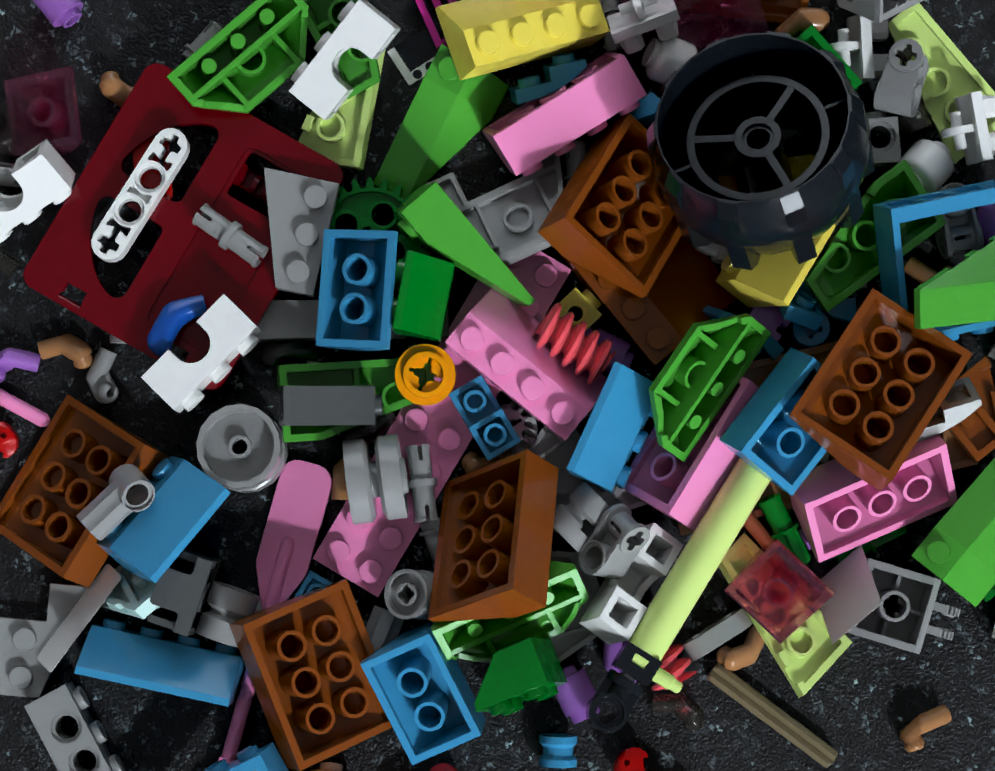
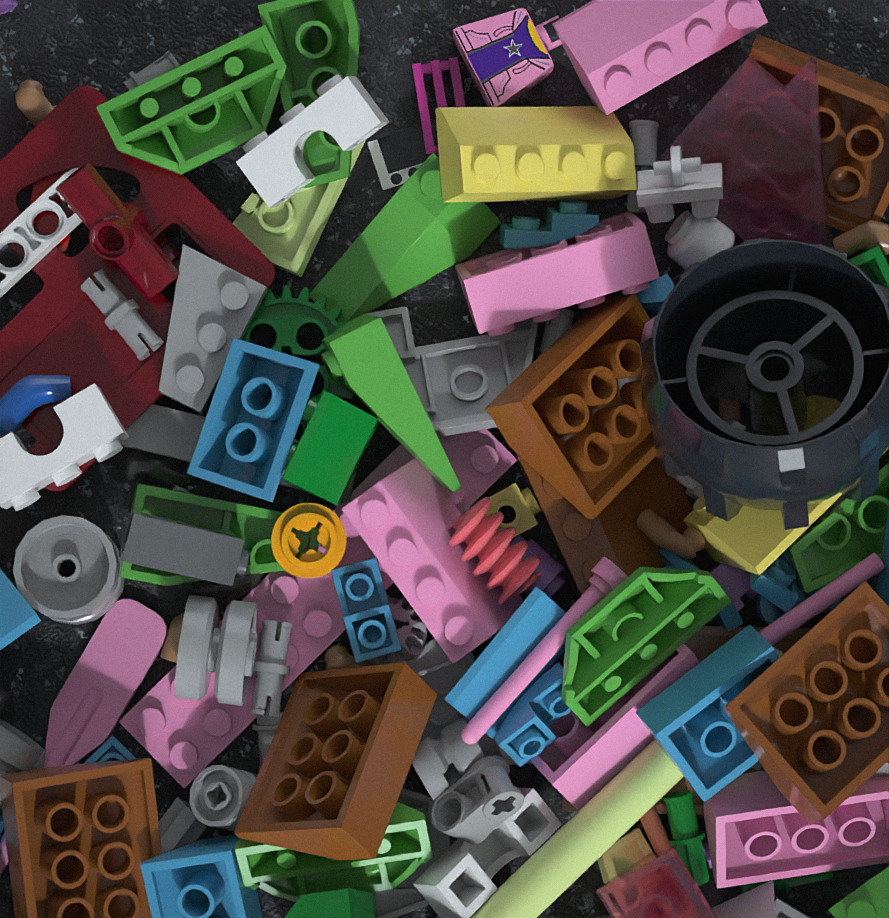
camera: 15 degrees right, 0 degrees up
(192, 155) = (101, 212): none -> dark red piece
(636, 473) = (528, 724): none -> dark azure slope
(667, 341) = (604, 580): none -> bright pink piece
(704, 296) = (667, 537): none -> medium nougat arm
(843, 312) = (822, 599): none -> bright pink bar

